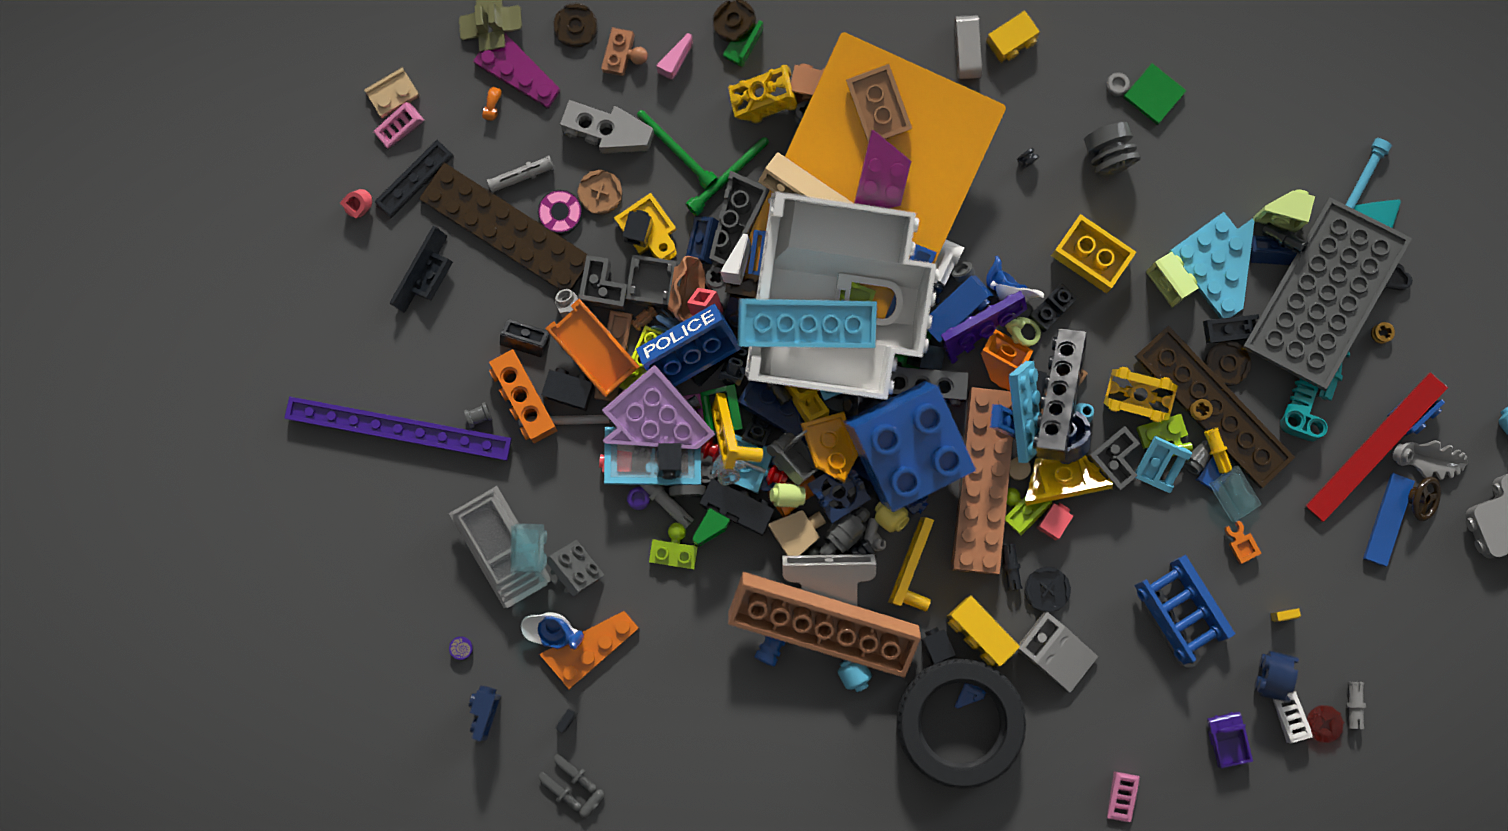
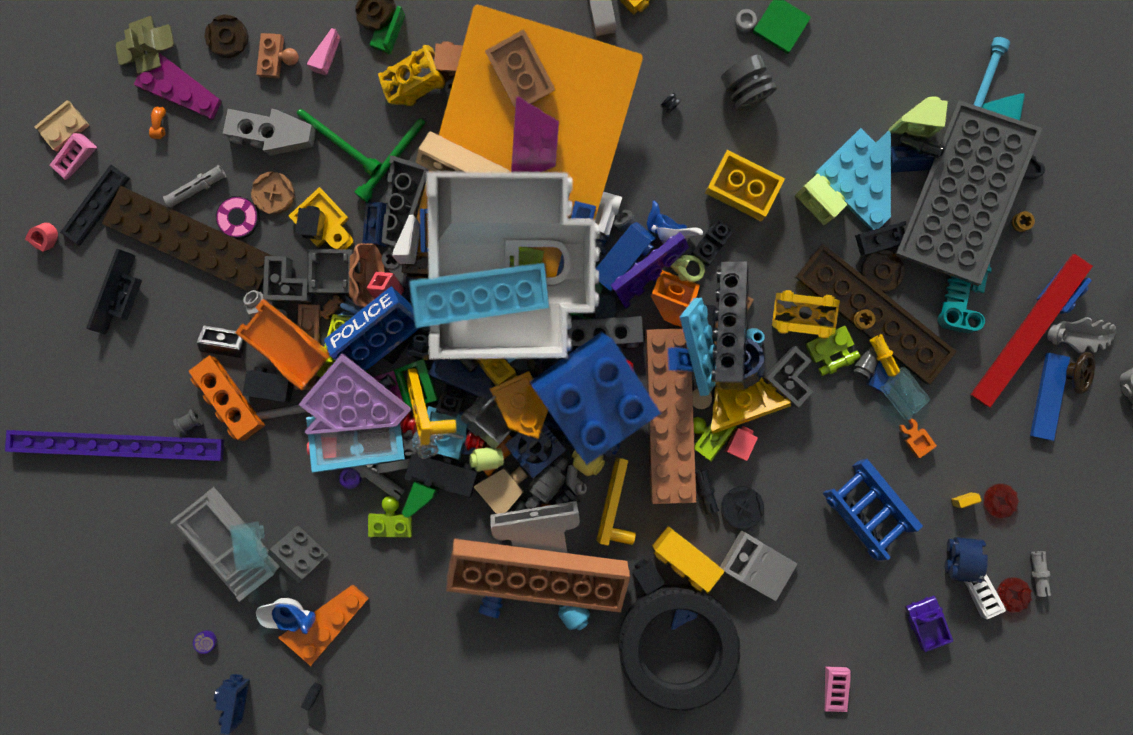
camera: 10 degrees left, 5 degrees up
(669, 460) = (369, 442): black brick -> none
(1156, 460) = (828, 375): medium azure plate -> none
(1313, 623) = (992, 504): none -> clear red gear

